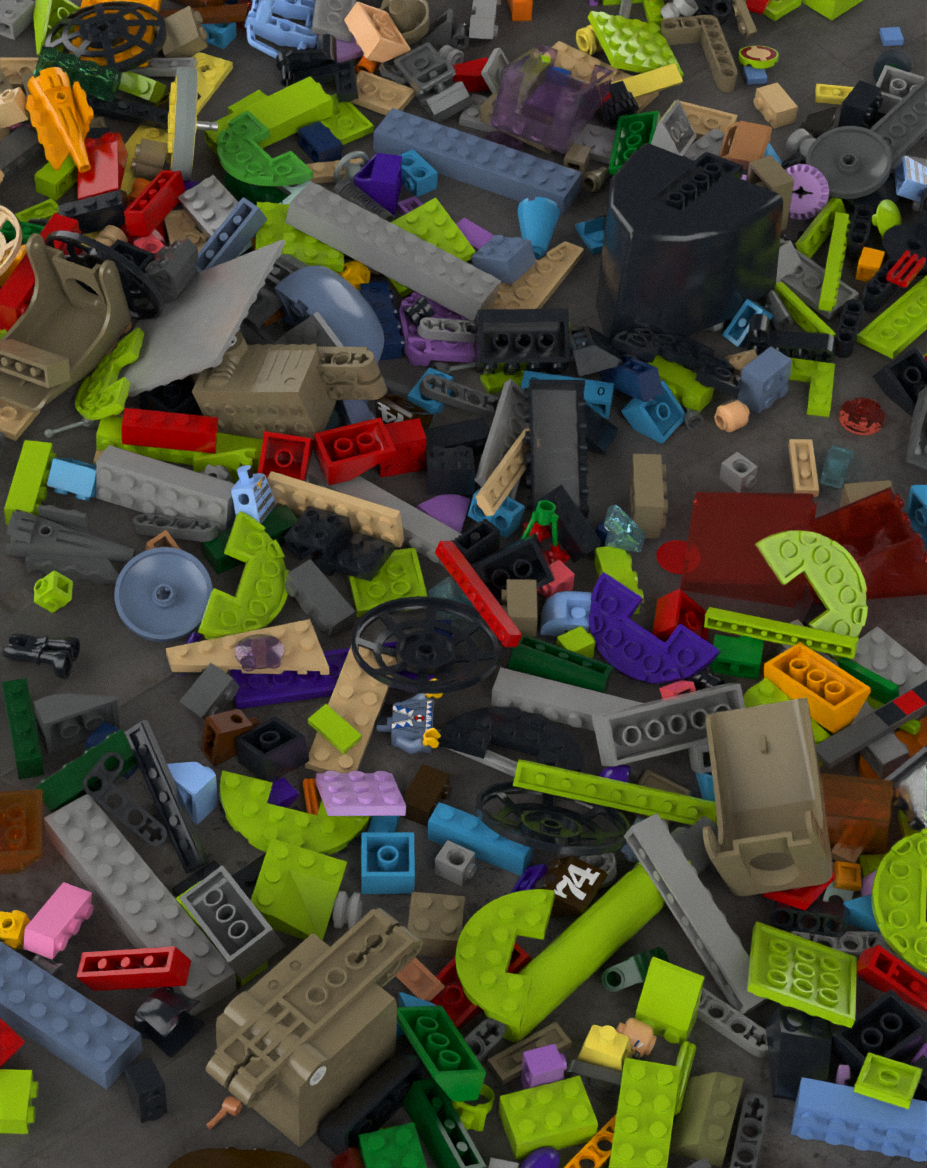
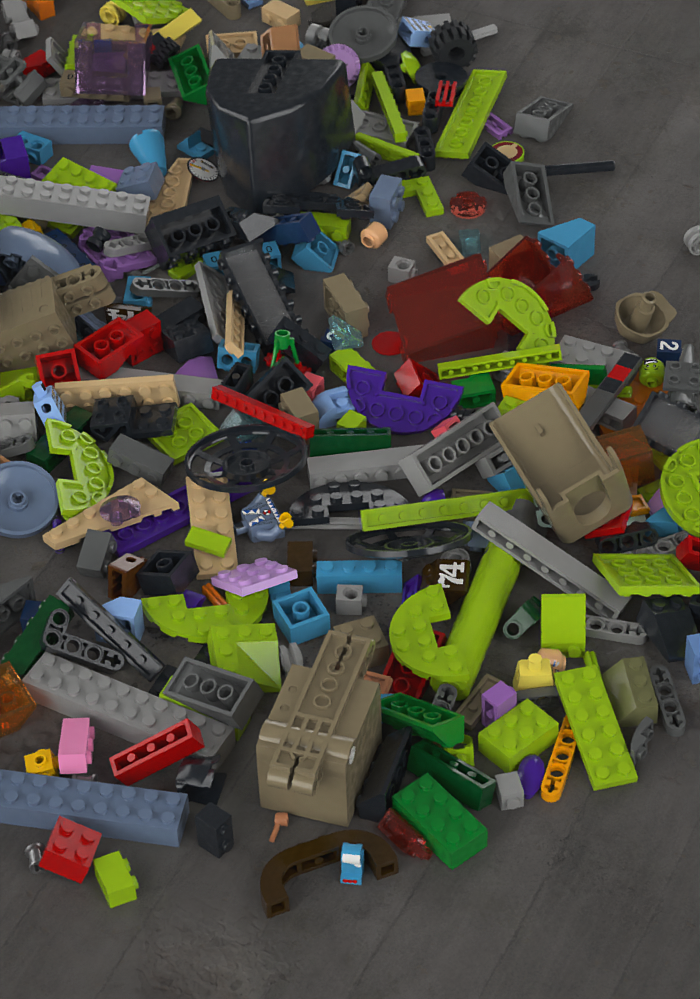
camera: 20 degrees left, 5 degrees down
(585, 264) = (203, 169): none -> white sticker

